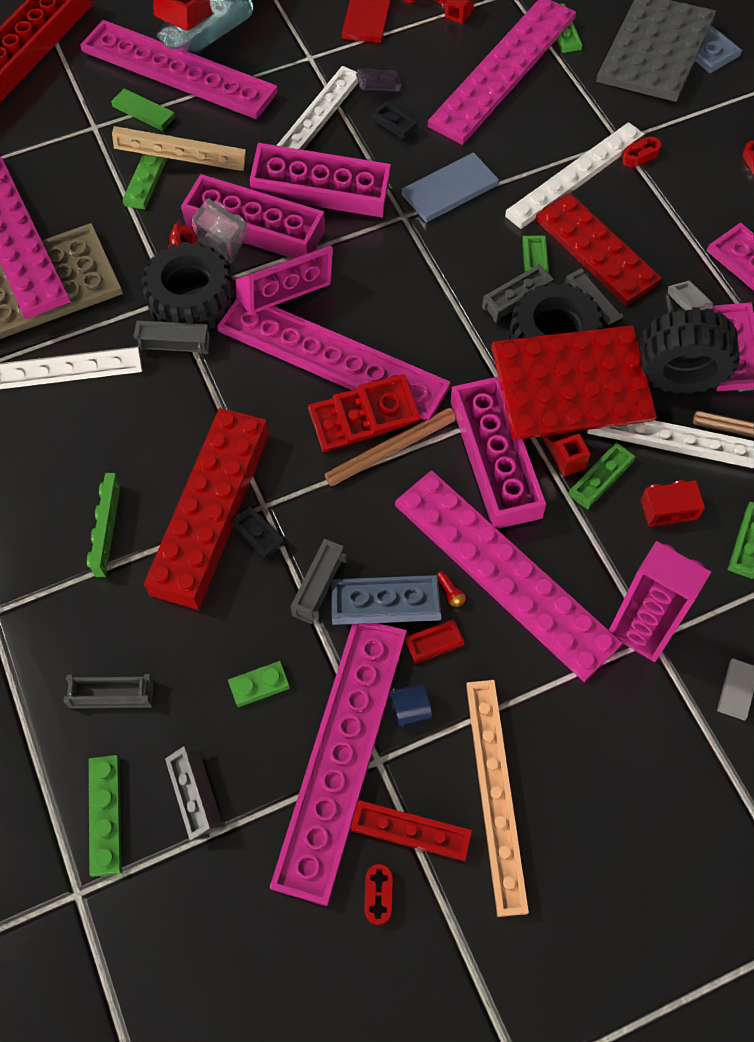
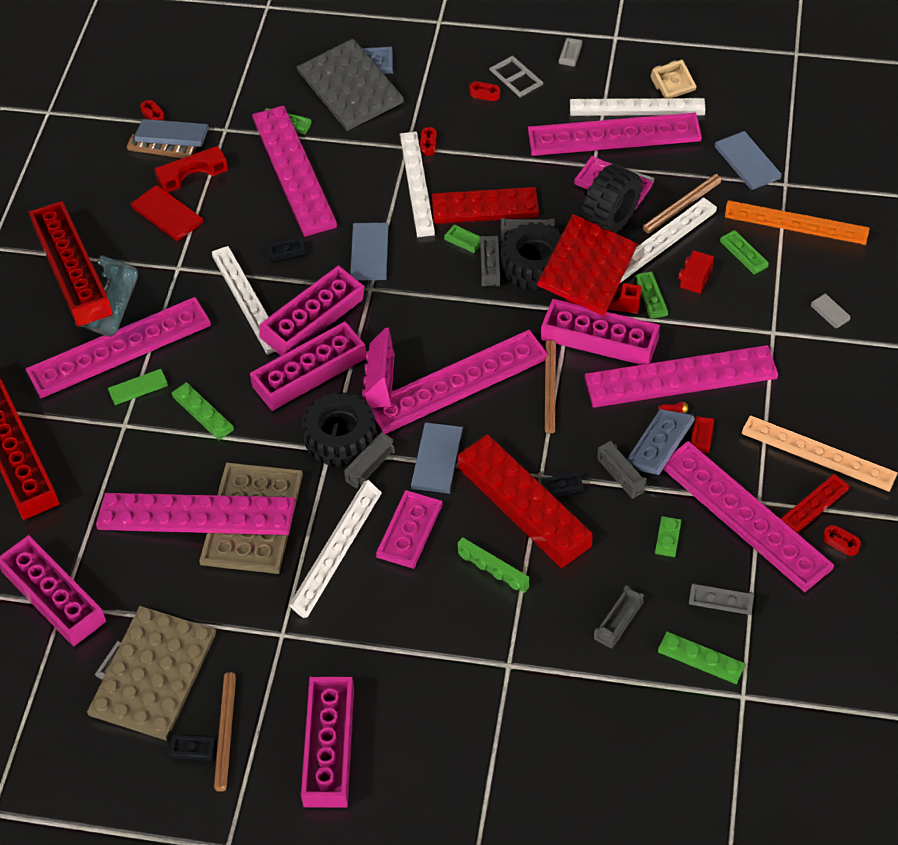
camera: 55 degrees left, 10 degrees down
(107, 421) = (409, 529): none -> dark pink plate
(179, 148) = (207, 378): tan plate -> none
(182, 234) = (293, 415): red piece -> none
(219, 229) = (310, 384): clear slope -> none
(230, 389) = (437, 458): none -> sand blue tile
(364, 413) = (517, 385): red slope -> none
(378, 79) = (242, 239): clear purple plate -> none
(410, 704) = (738, 462): dark blue piece -> none
(658, 600) = (772, 299): dark pink brick -> none
(689, 296) = (563, 182): light grey tile -> none

